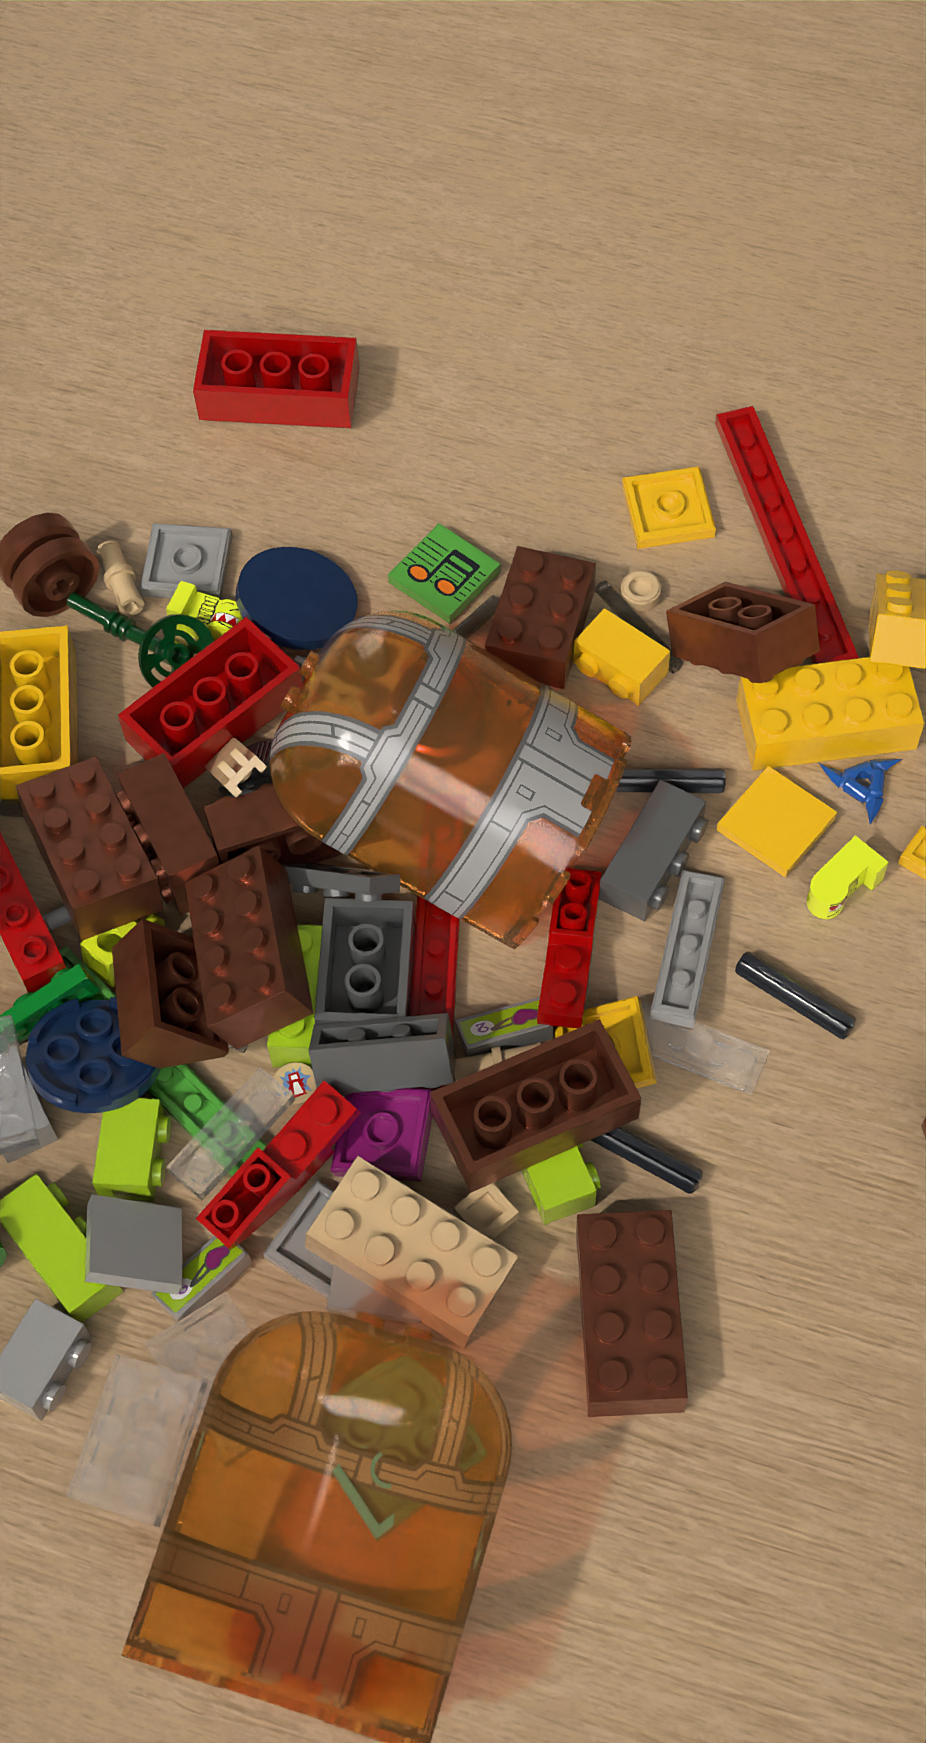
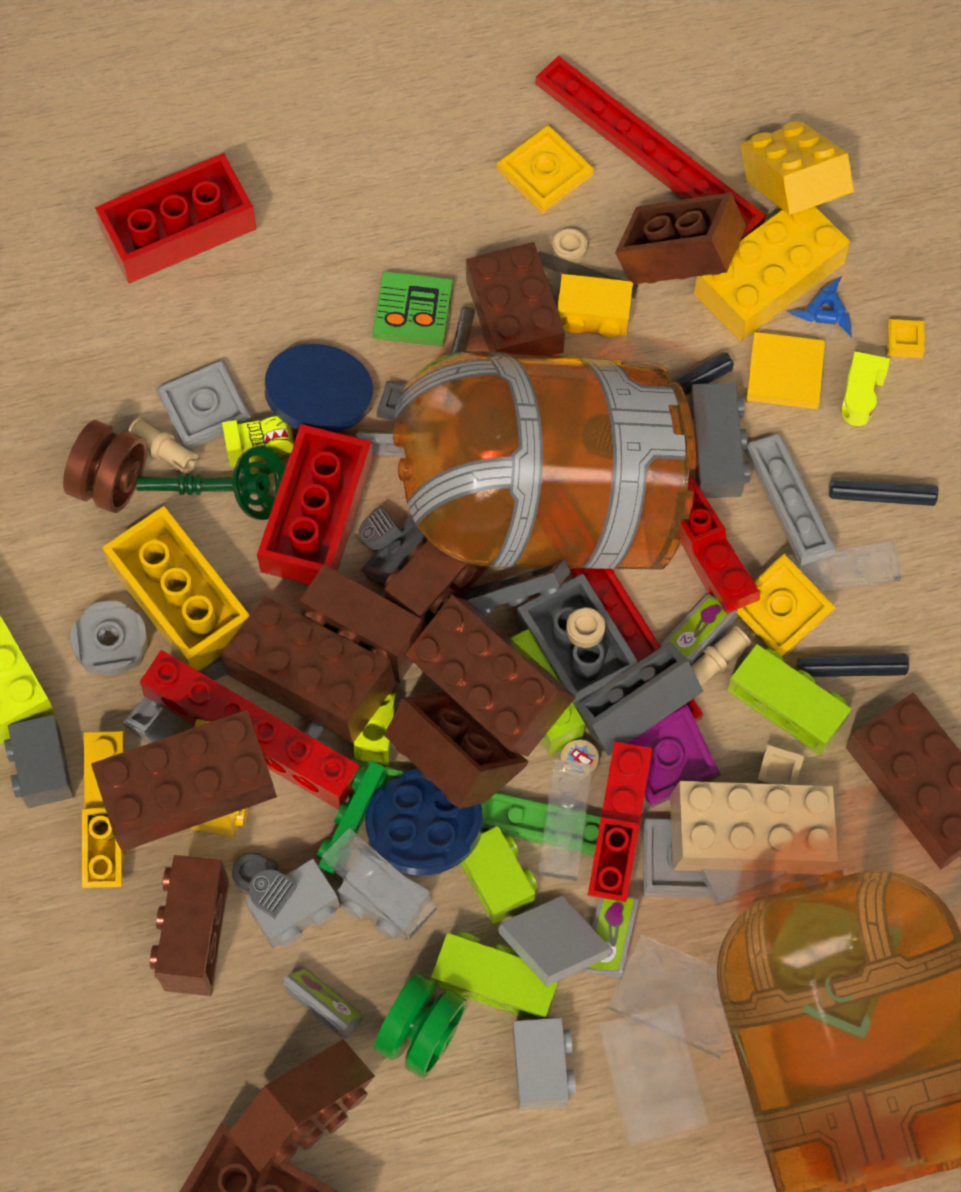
camera: 35 degrees left, 5 degrees up
(234, 765) = (377, 545): tan hinge -> none
(375, 953) = (585, 627): none -> tan tile
(535, 1105) = (778, 672): copper brick -> none

